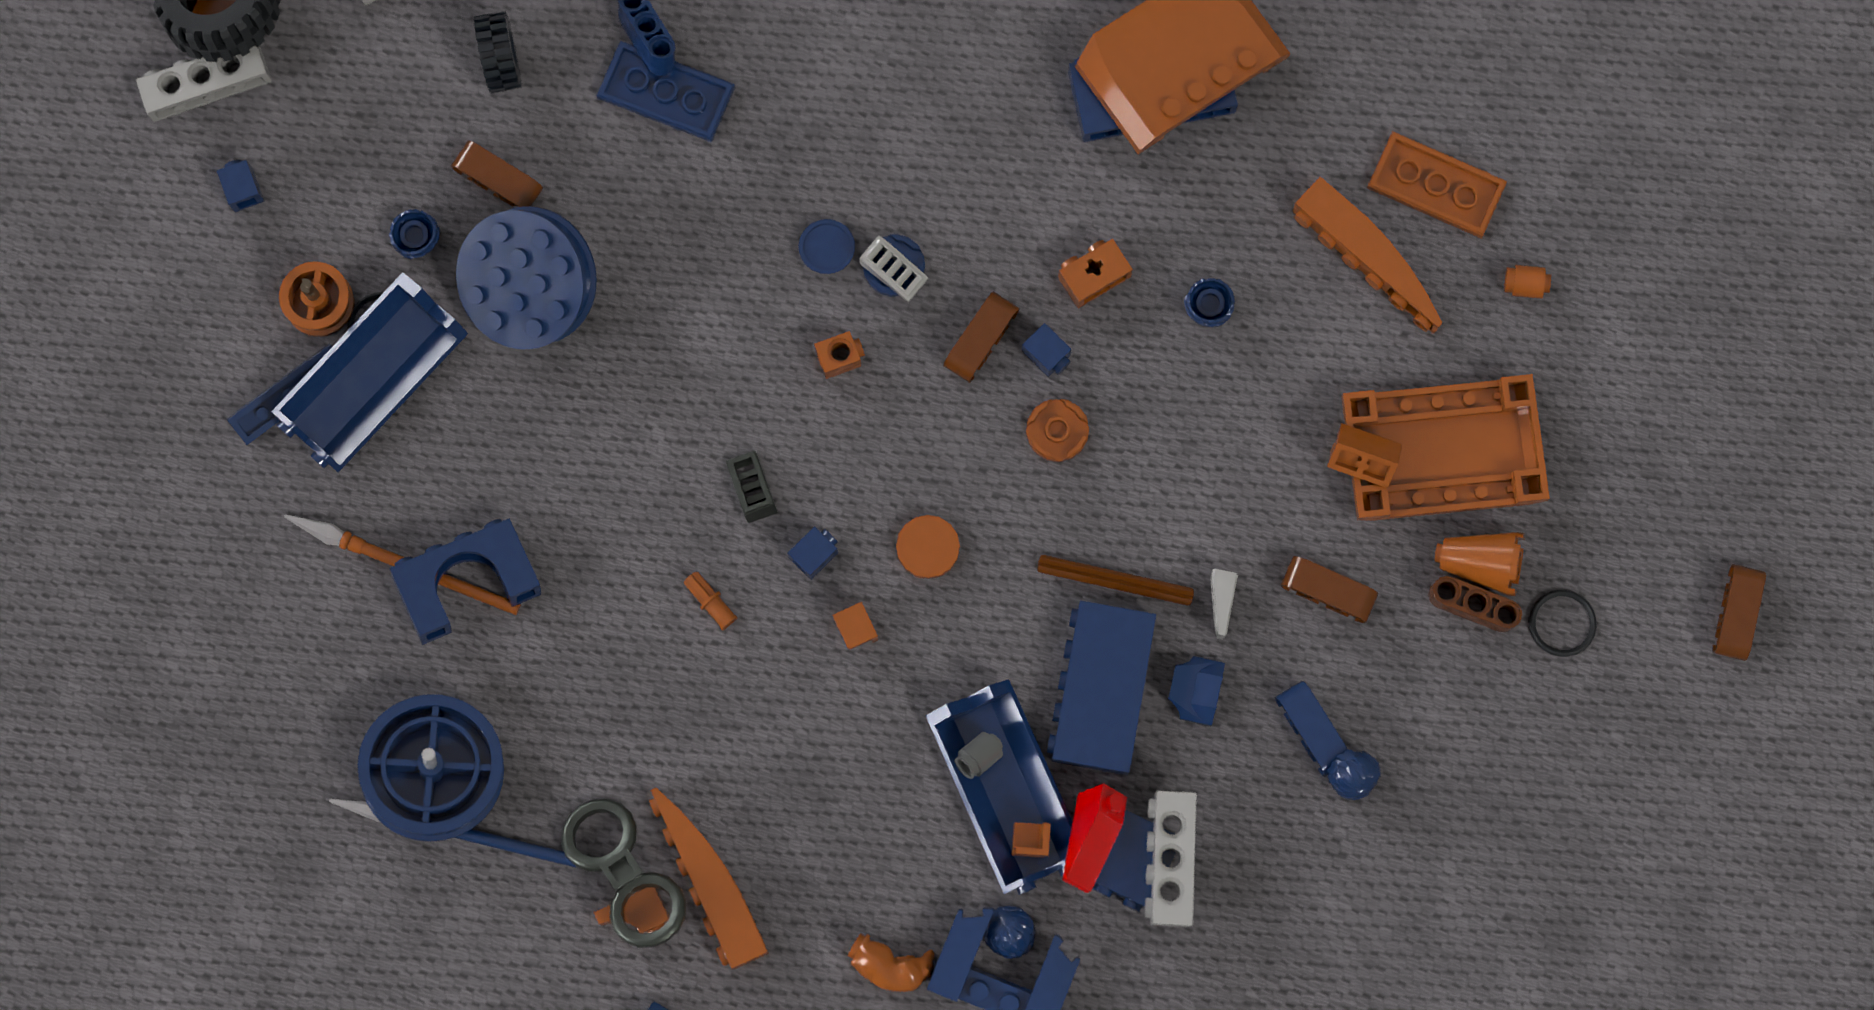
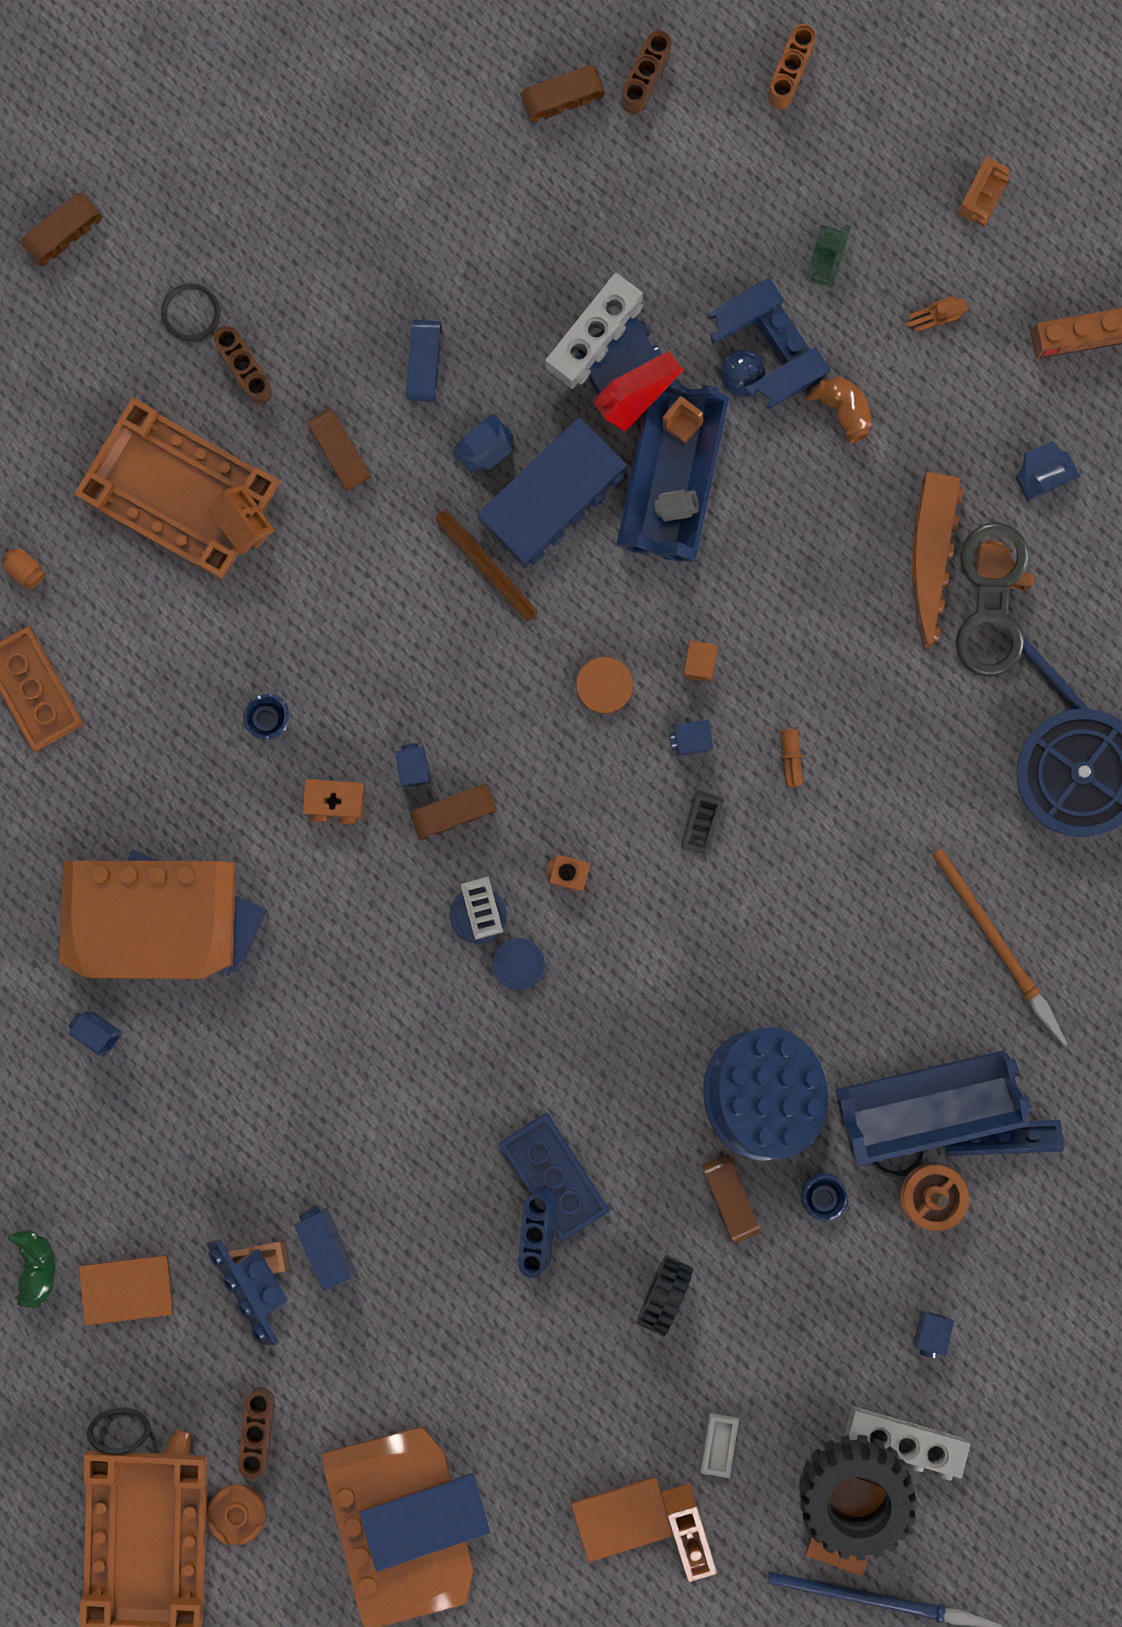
camera: 145 degrees left, 5 degrees up
(493, 546) = (1000, 919): dark blue arch -> none
(1063, 437) = (454, 711): dark orange tile -> none
(1222, 590) = (419, 495): light grey slope -> none
(1354, 774) = (420, 306): dark blue hair -> none
(1365, 248) = (121, 676): dark orange slope -> none
(1484, 559) = (212, 389): dark orange cone -> none

